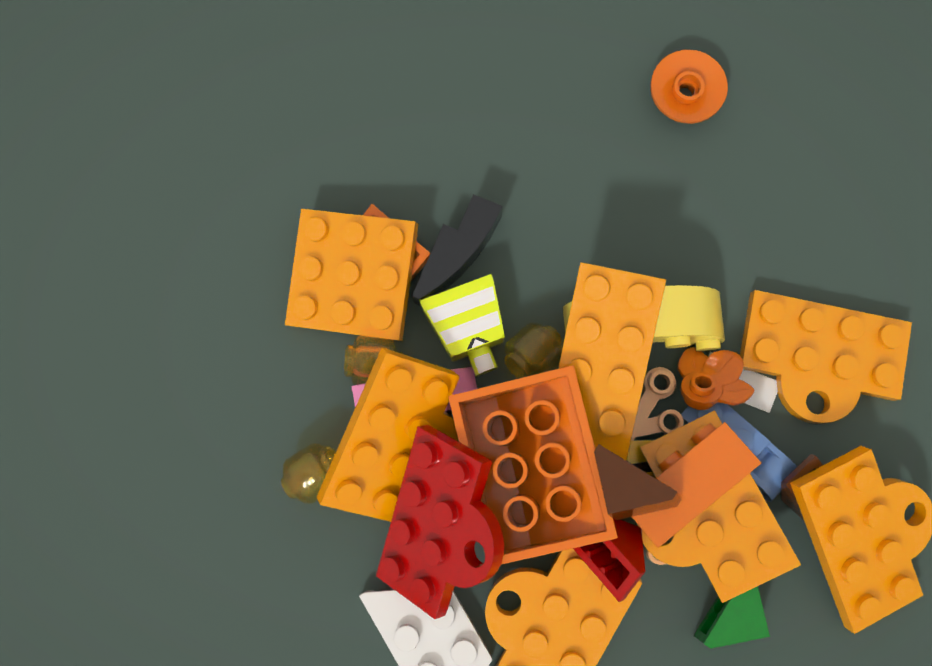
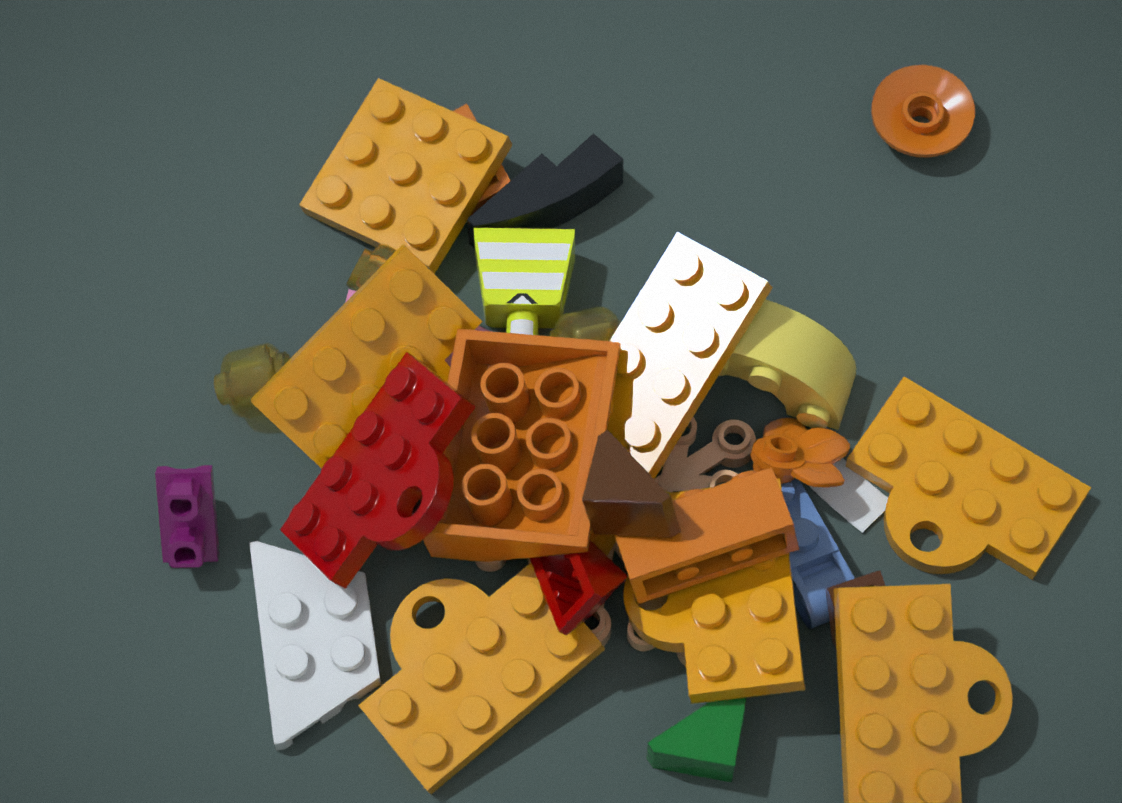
camera: 20 degrees right, 15 degrees down
(309, 602) = (187, 515): none -> magenta hips

